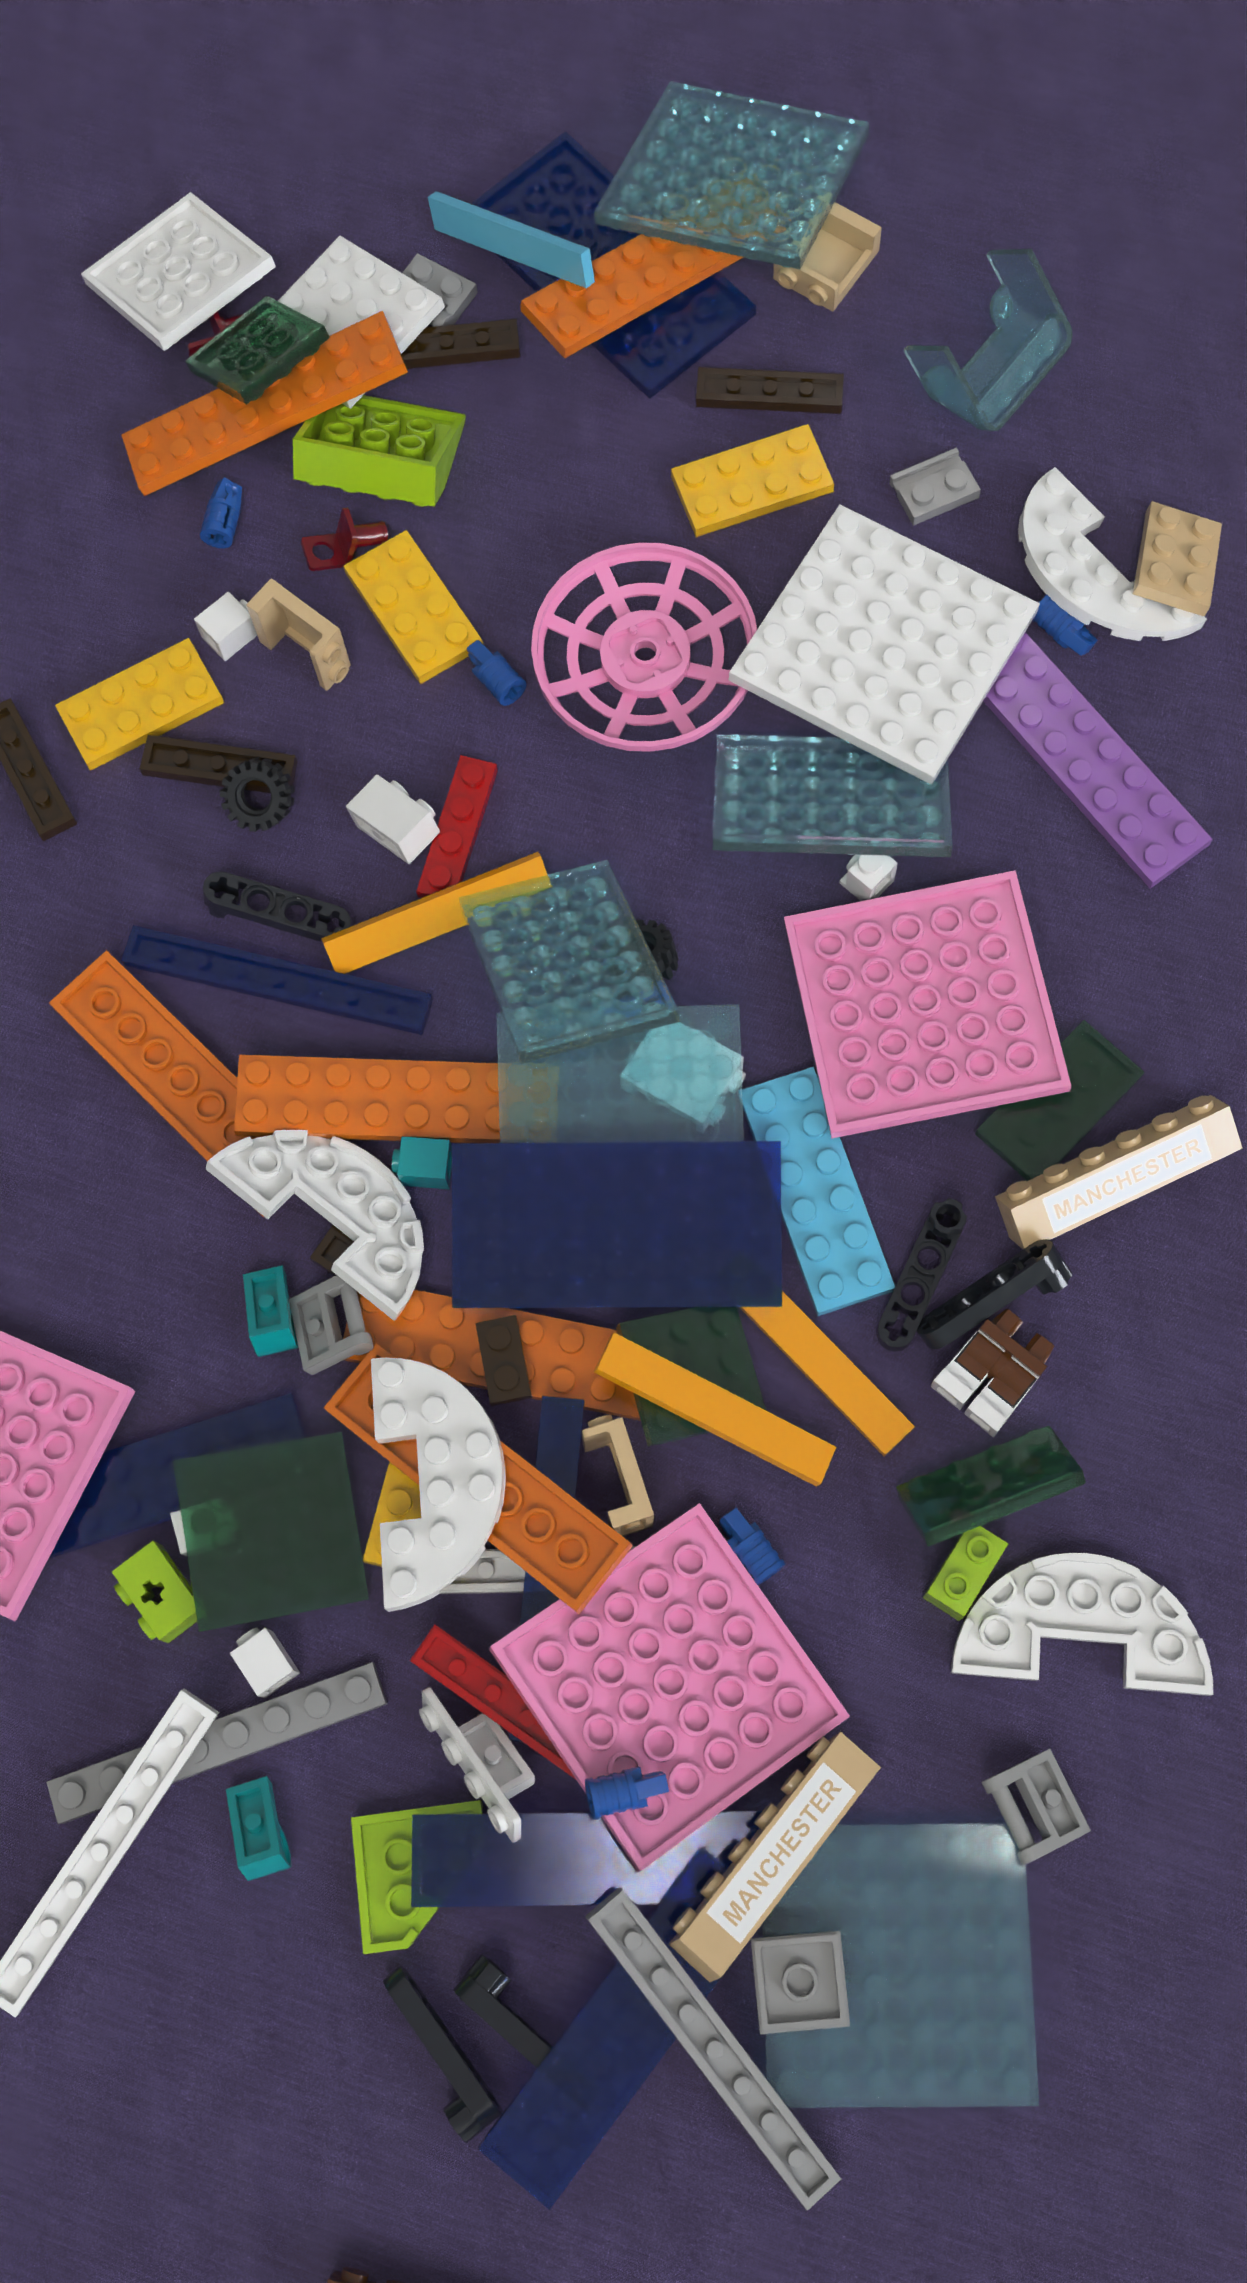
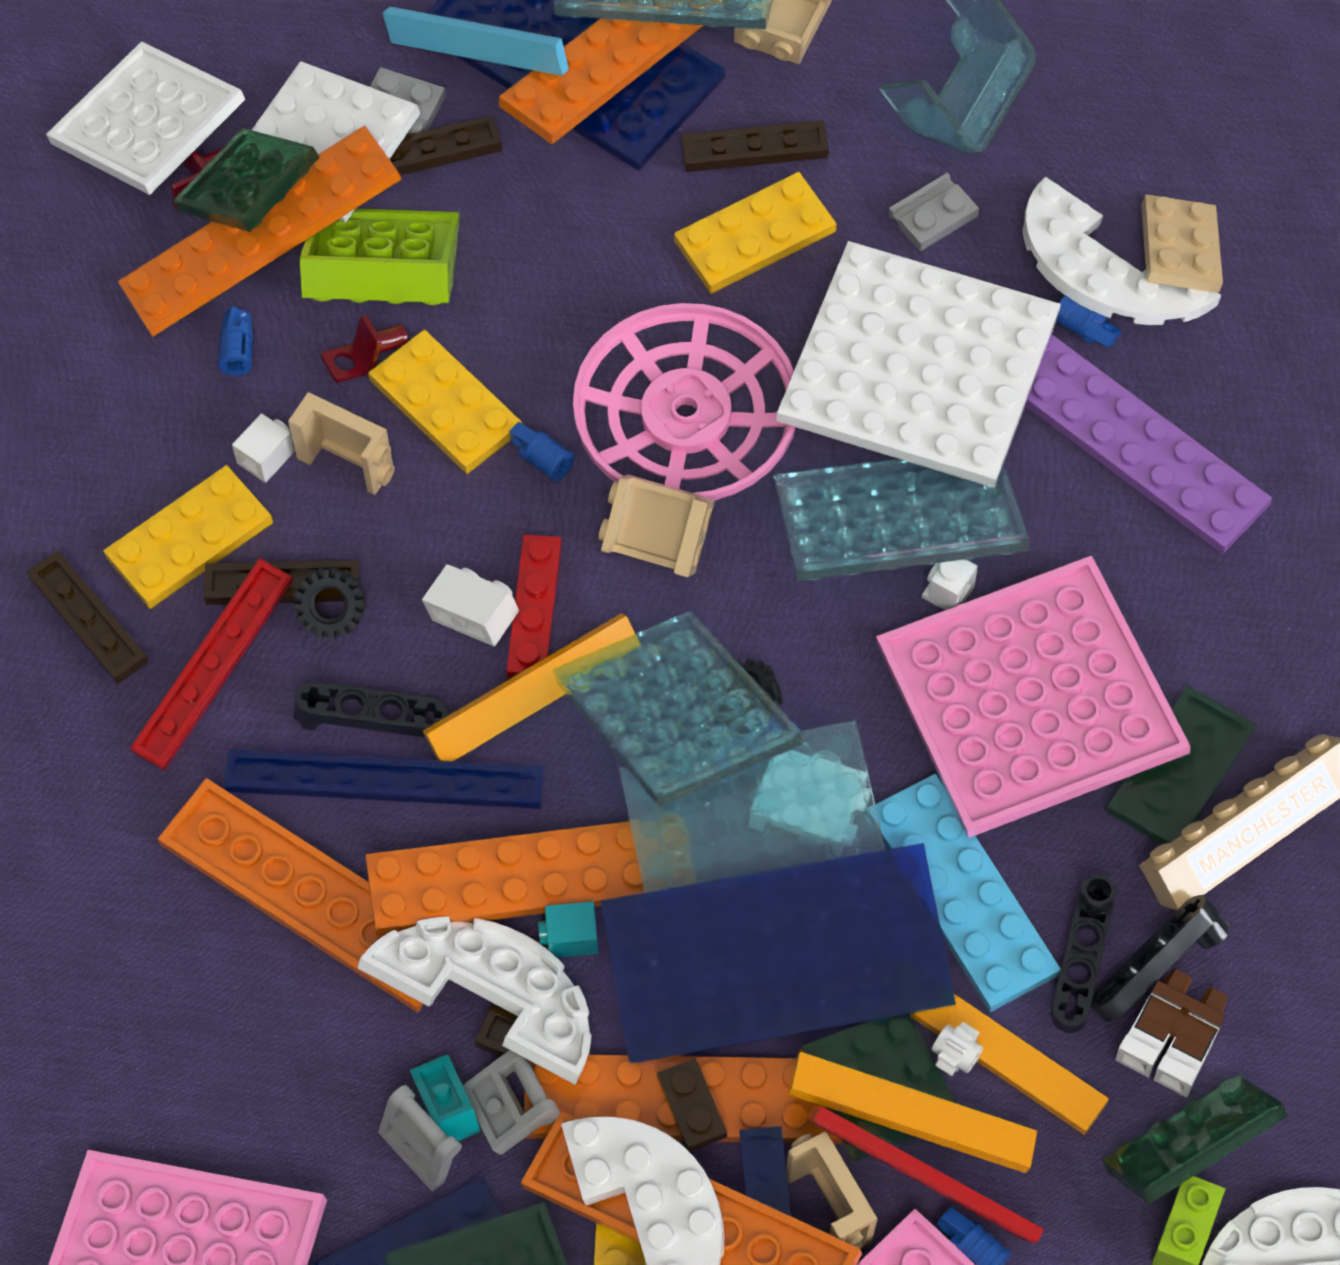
camera: 15 degrees left, 10 degrees down
(134, 836) = (211, 664): none -> red tile
(234, 1345) = (418, 1138): none -> light grey plate
(590, 766) = (656, 524): none -> tan panel
(713, 1475) = (924, 1174): none -> red tile
(774, 1350) = (957, 1048): none -> white gear

